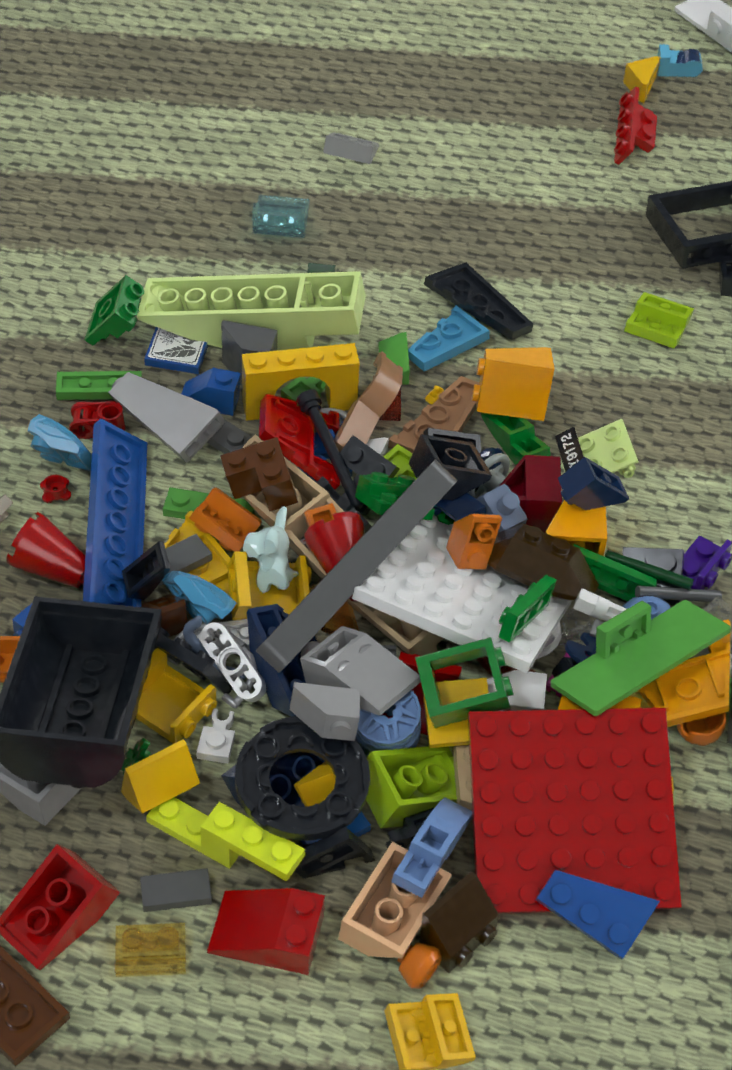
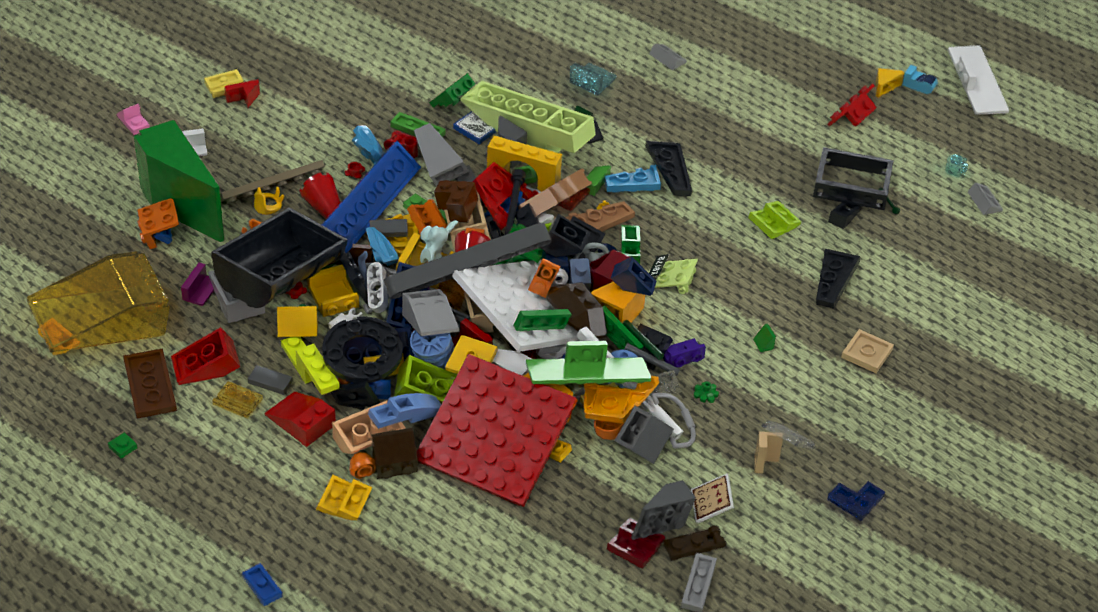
camera: 30 degrees right, 5 degrees down
(146, 572) = (359, 226): black slope -> none
(215, 388) = (475, 155): blue slope -> none
(327, 709) = (396, 321): light grey slope -> none
(458, 711) = (461, 332): green window -> none
(514, 382) = (645, 213): light orange slope -> none
(598, 910) = (473, 483): blue wing -> none

